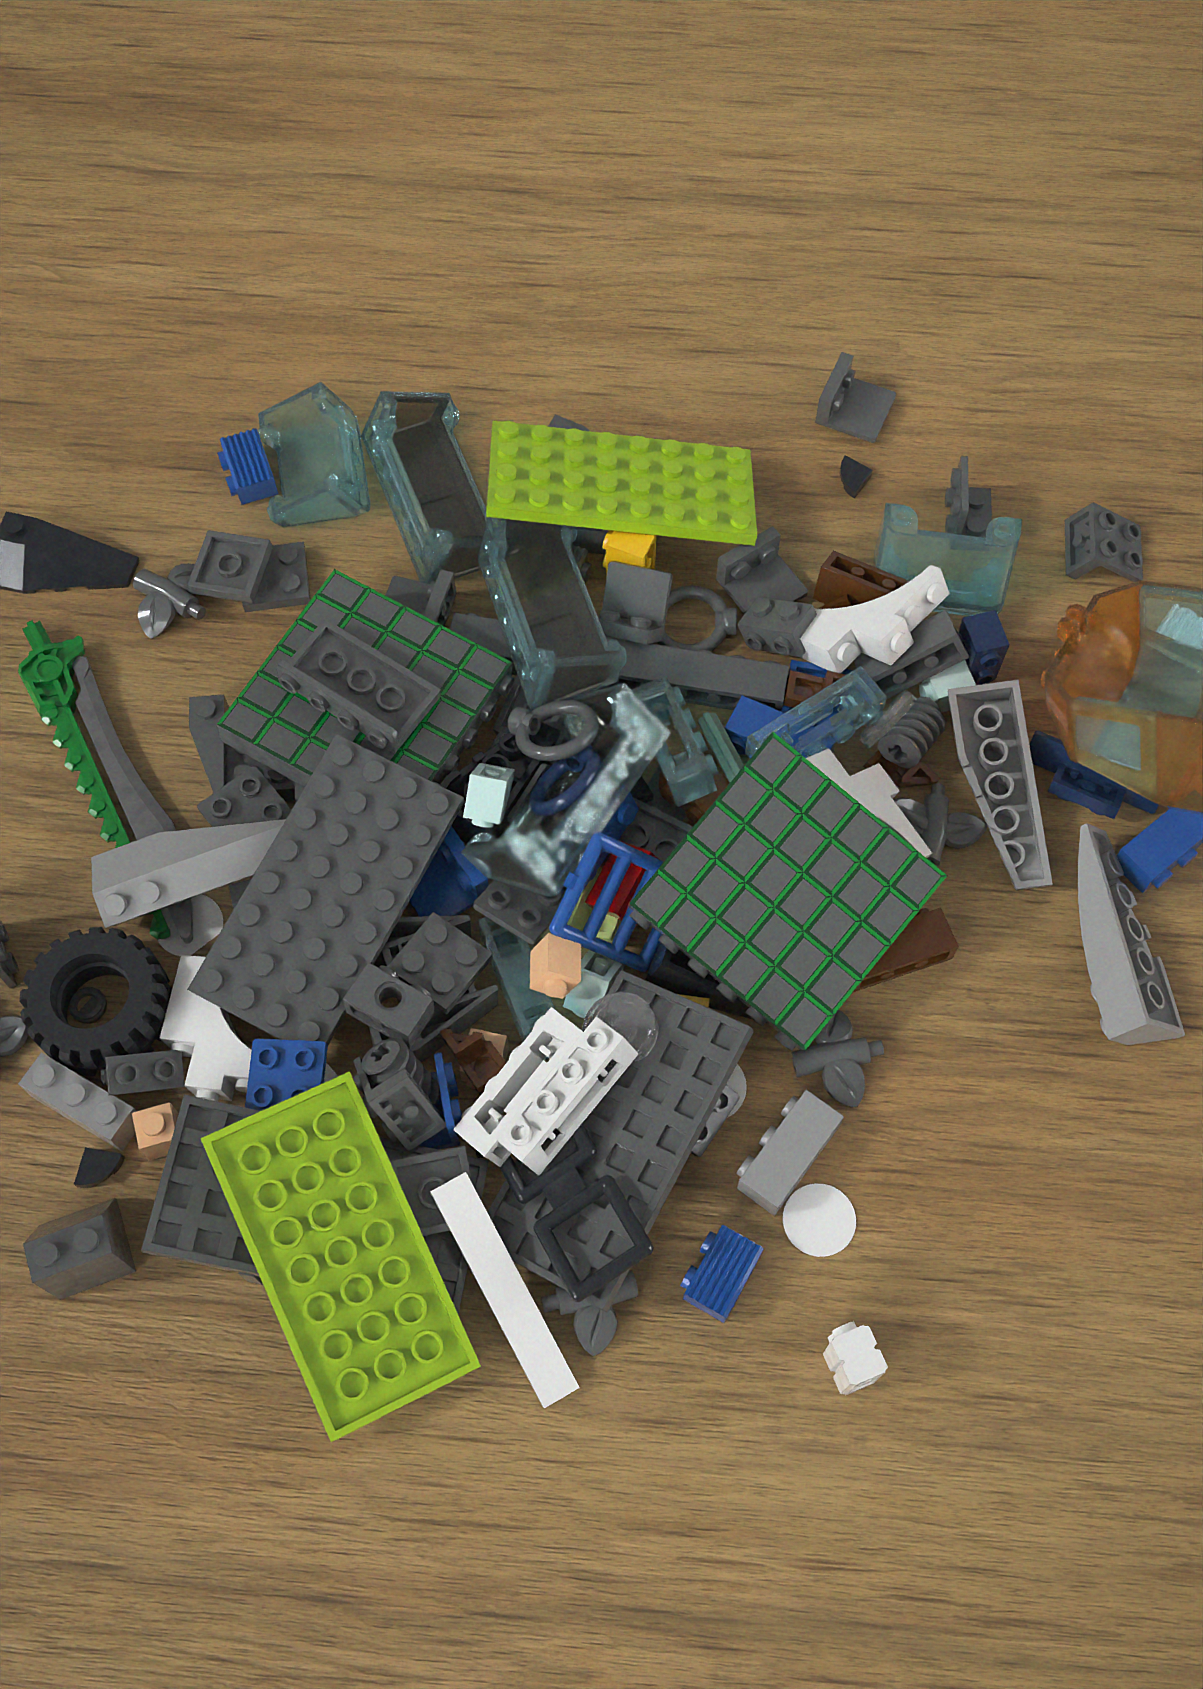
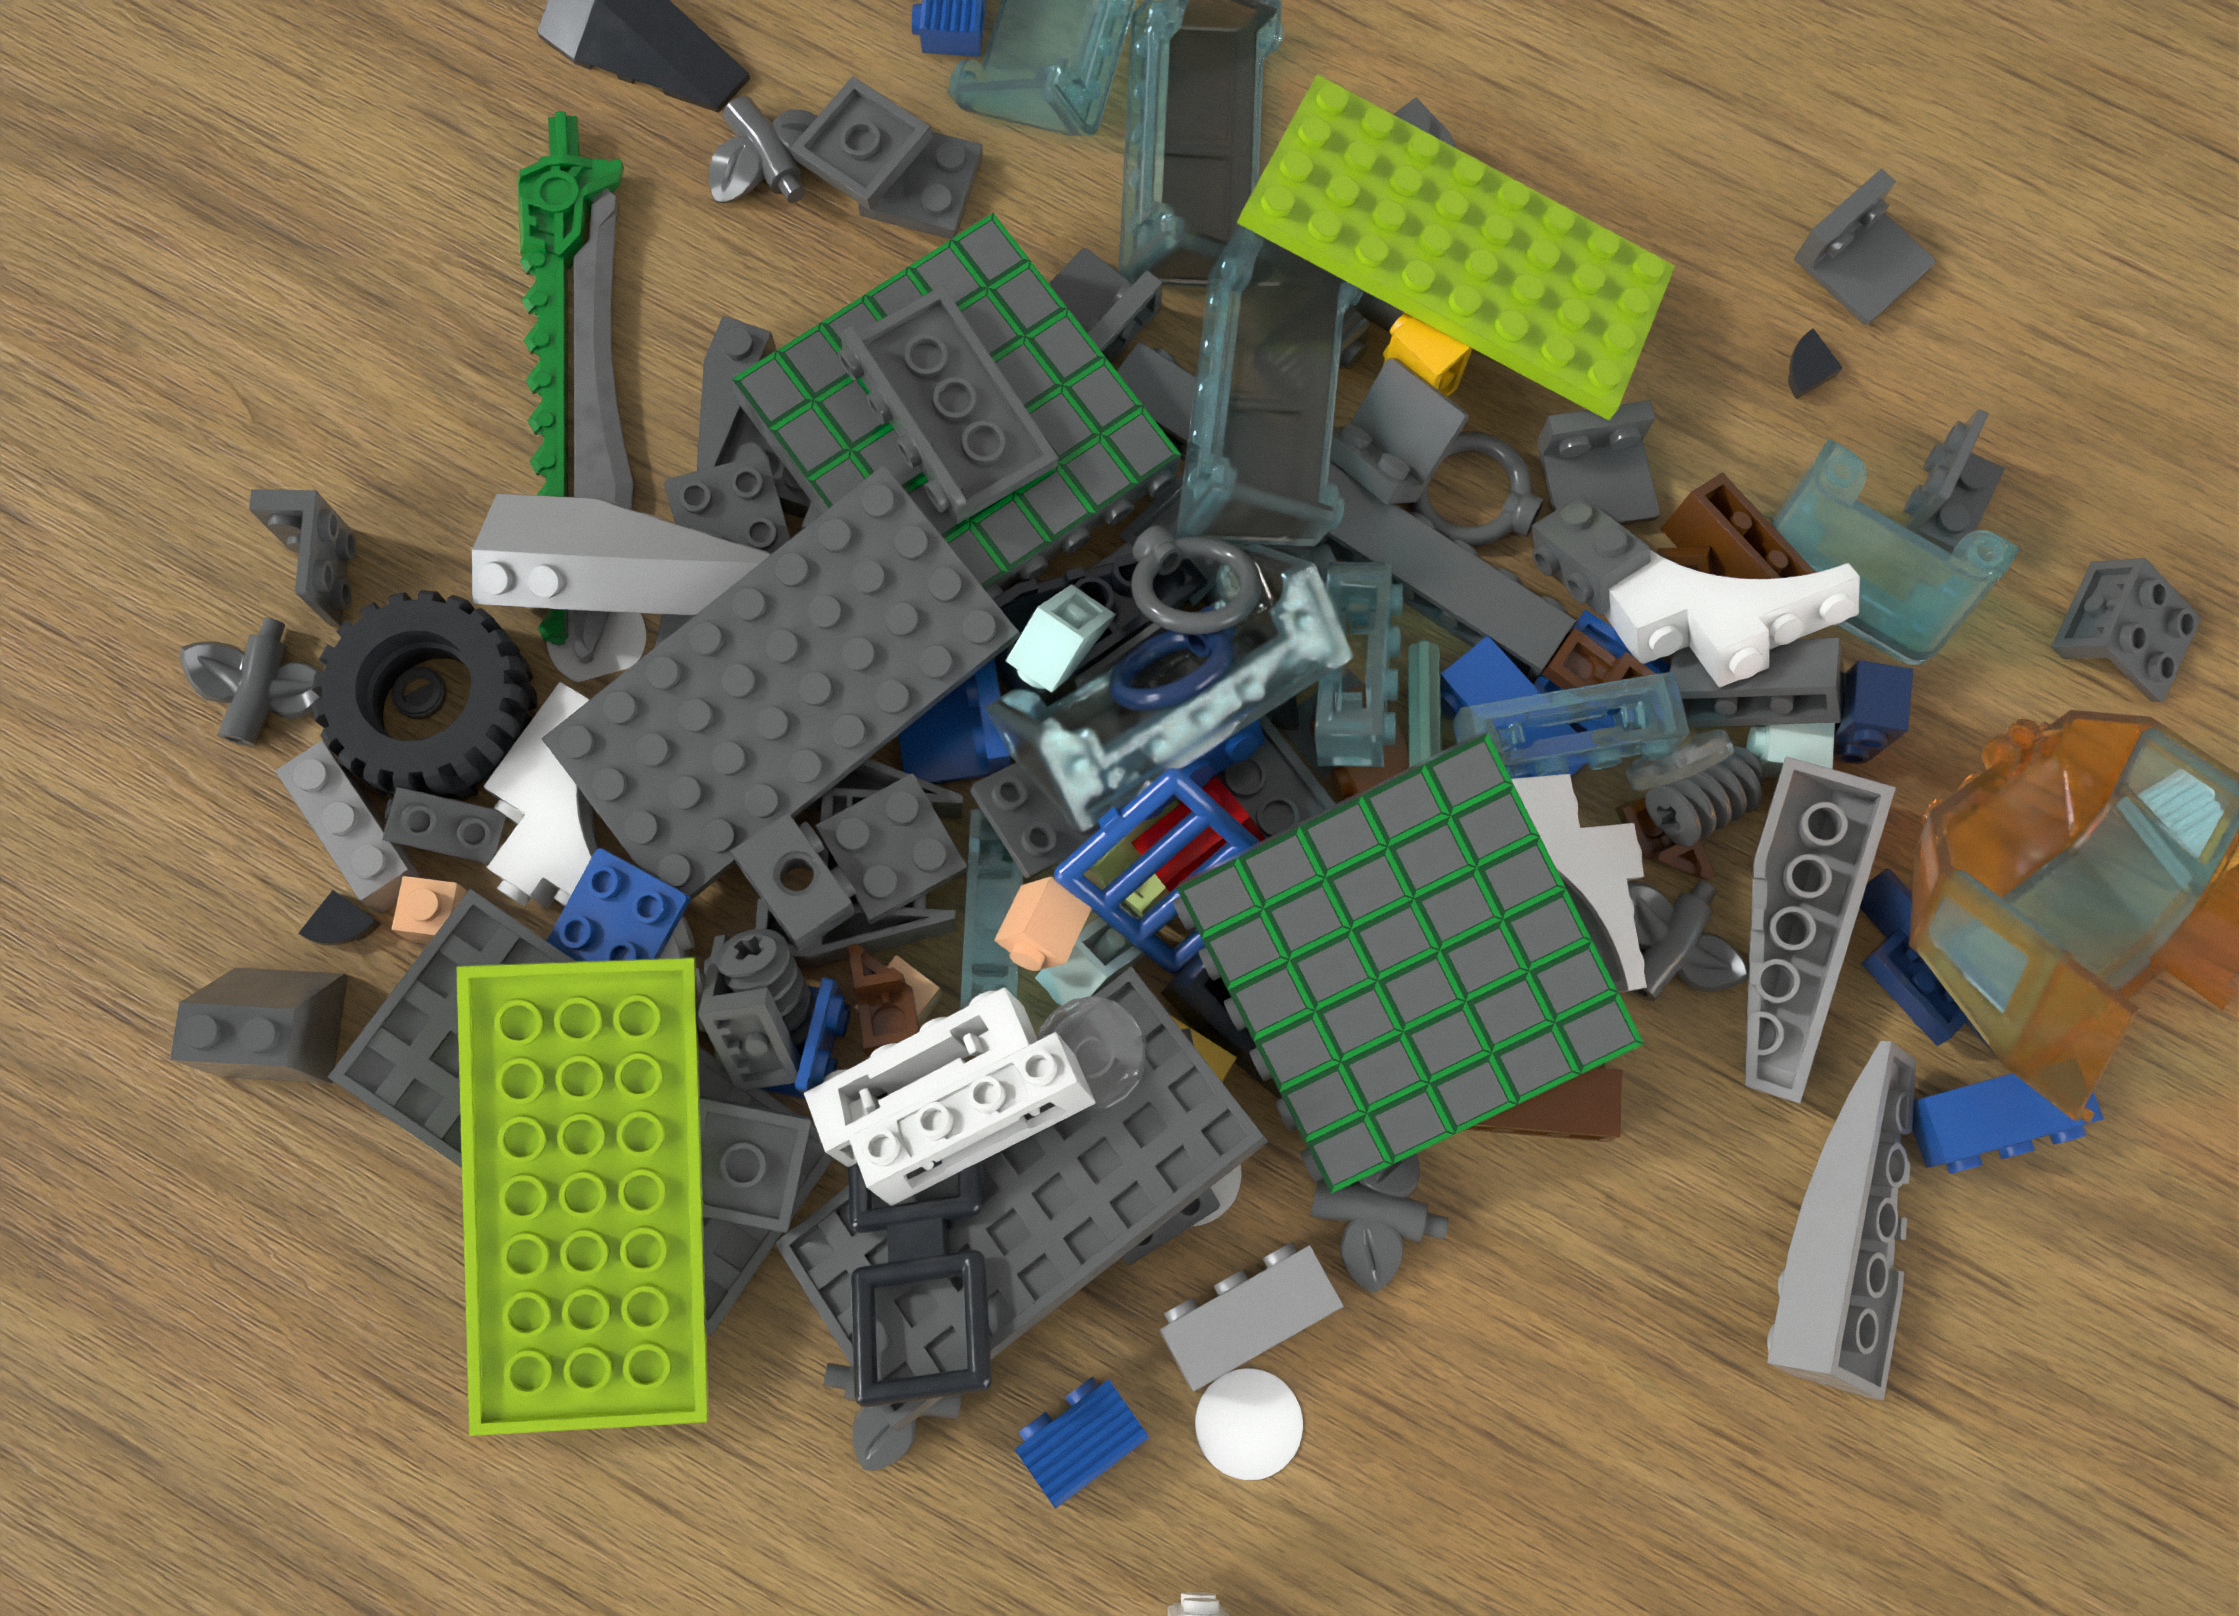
camera: 20 degrees right, 10 degrees up
(504, 1290) = (781, 1334): white tile -> none

